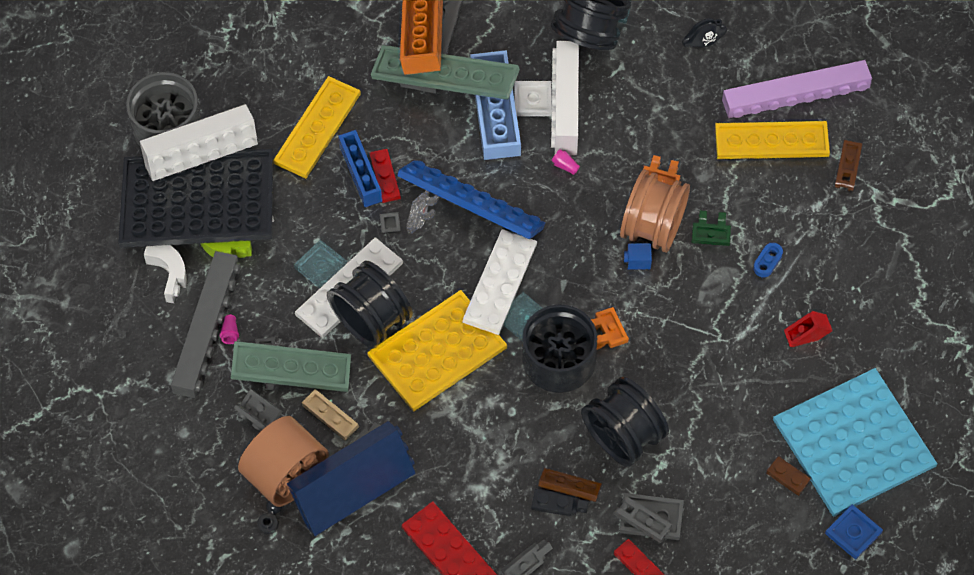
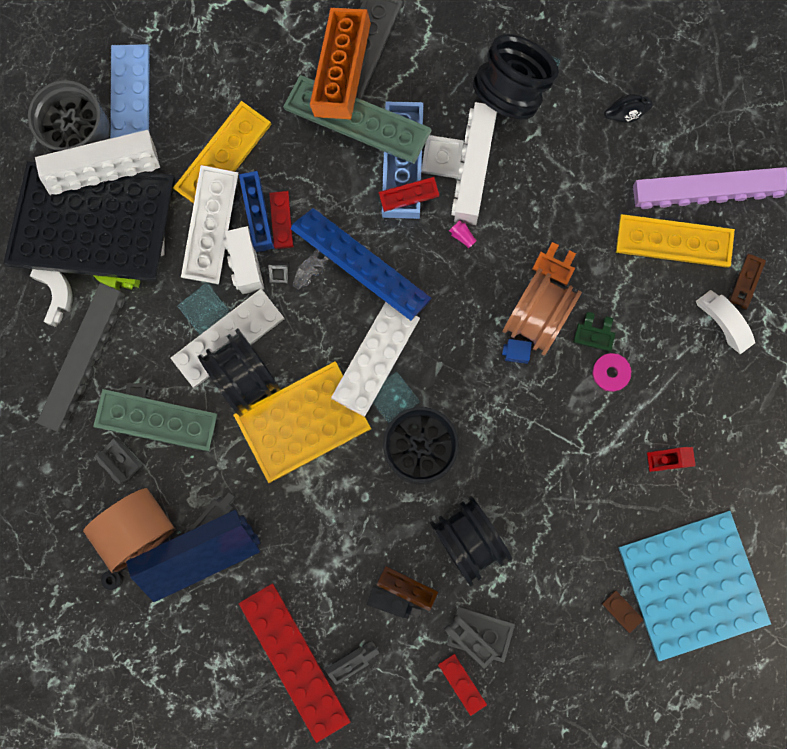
camera: 15 degrees right, 20 degrees up
(214, 78) = (129, 89): none -> light blue plate
(229, 330) = (103, 370): dark pink cone -> none
(315, 186) = (208, 224): none -> white plate
(330, 415) = (187, 475): tan plate -> none
(355, 211) = (243, 260): none -> white brick
(507, 128) = (409, 194): none -> red plate
(611, 327) = (476, 424): orange plate -> none
(738, 254) = (614, 361): none -> dark pink tile
(767, 261) = (646, 376): blue plate -> none
(839, 198) = (729, 319): none -> white arch
(854, 531) = (675, 683): blue plate -> none

